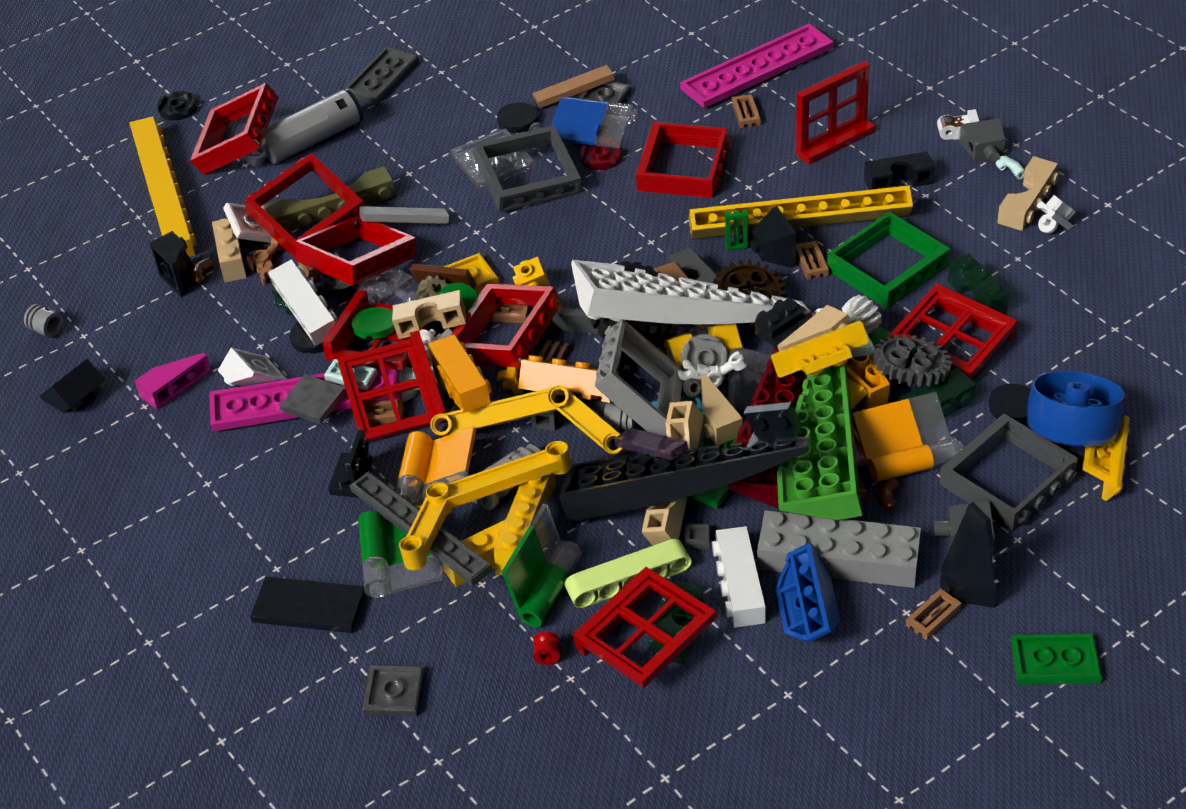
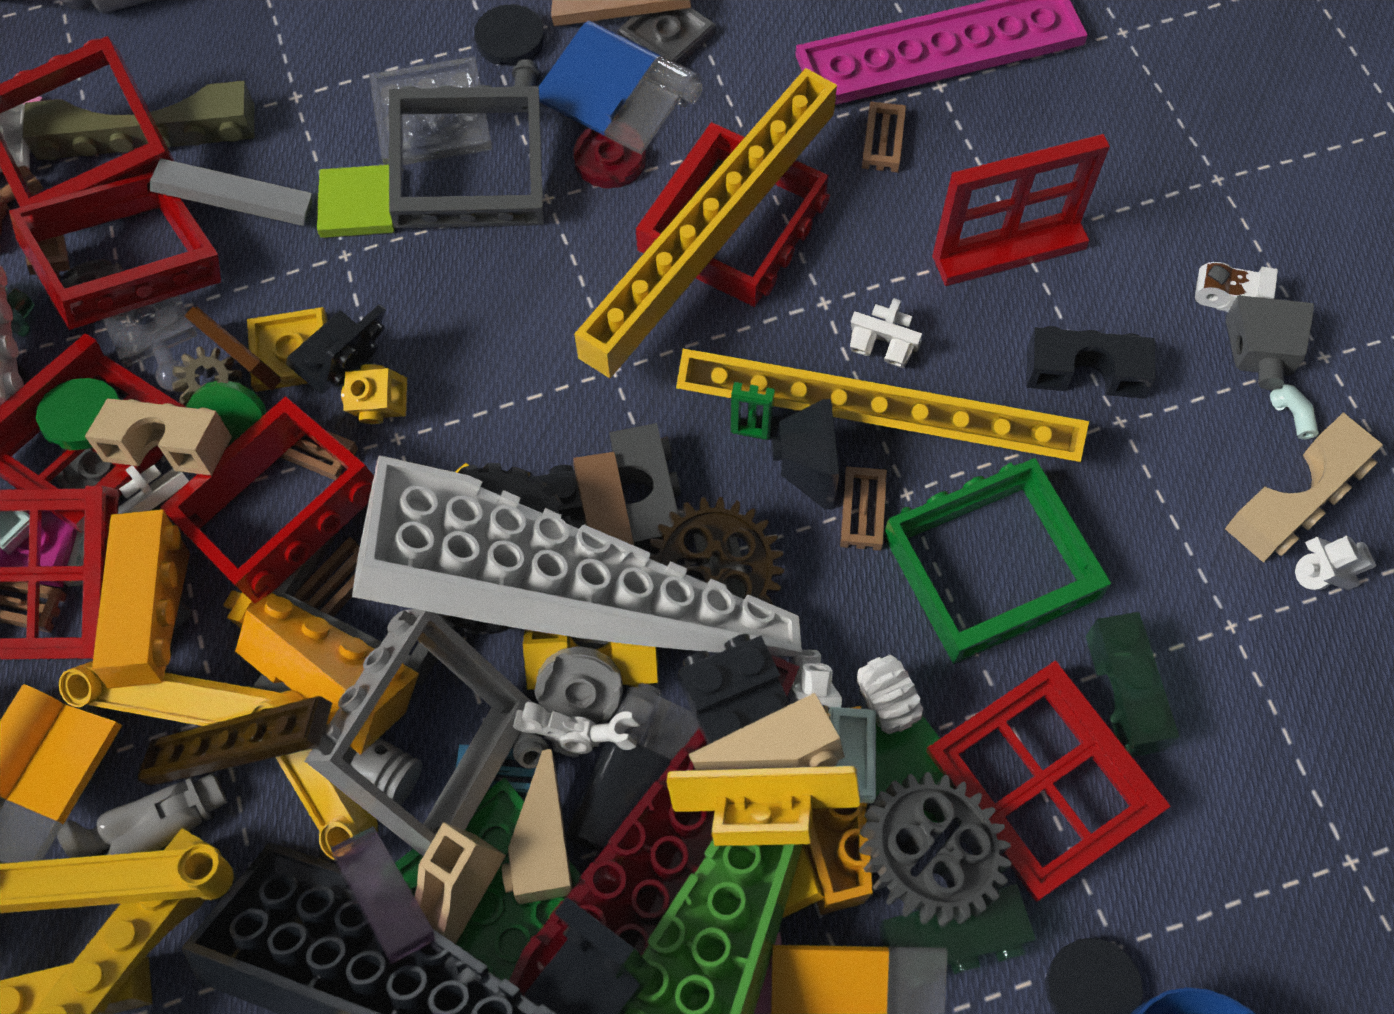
camera: 15 degrees right, 20 degrees up
(471, 206) = (354, 201): none -> lime tile
(499, 264) = (337, 349): none -> black bracket
(544, 407) = (236, 741): none -> dark brown tile
(675, 157) = (705, 224): none -> yellow brick
(788, 185) = (901, 340): none -> white hips

